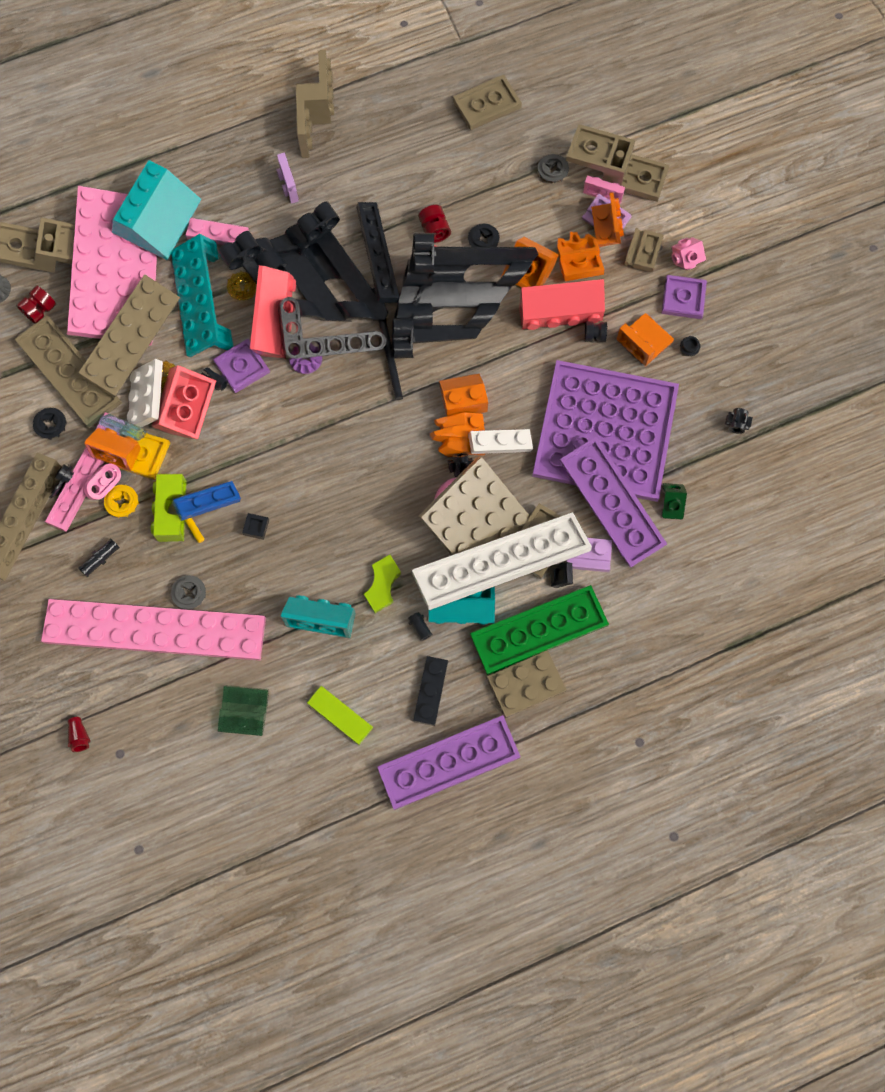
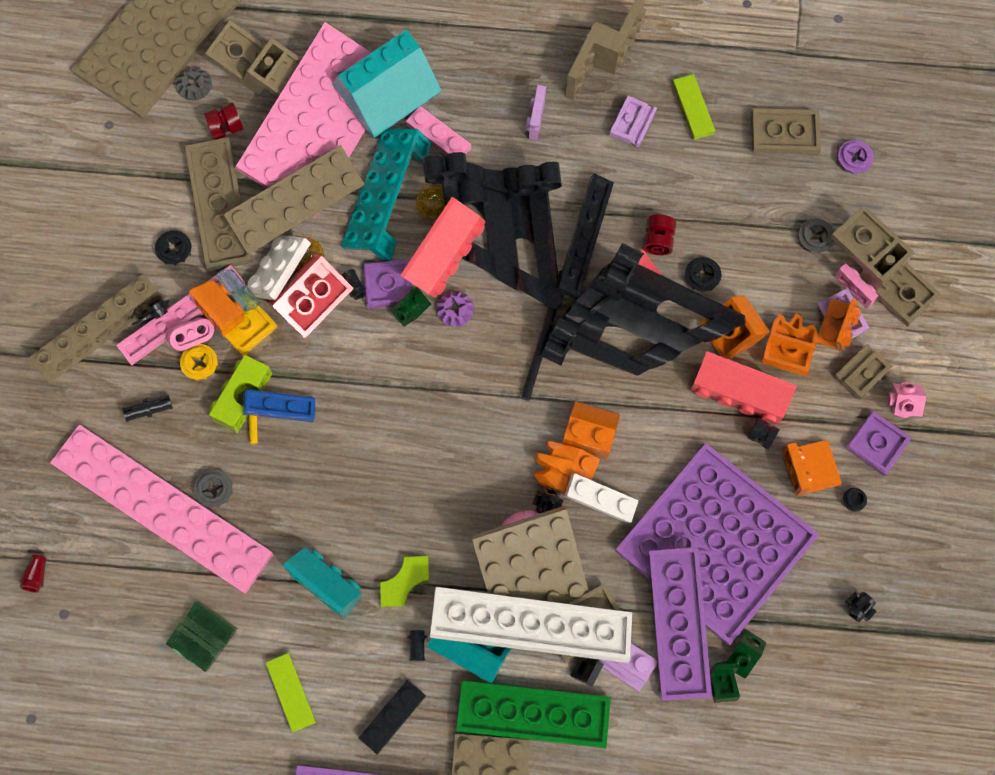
camera: 25 degrees right, 0 degrees up
(255, 526) = (312, 456): black plate -> none
(269, 373) = (410, 307): none -> dark green bracket
(323, 342) = (479, 303): beam -> none
(366, 150) = (633, 121): none -> lavender plate
(406, 118) = (693, 107): none -> lime tile
(557, 94) = (851, 148): none -> medium lavender gear
(670, 529) = (724, 683): none -> dark green bracket

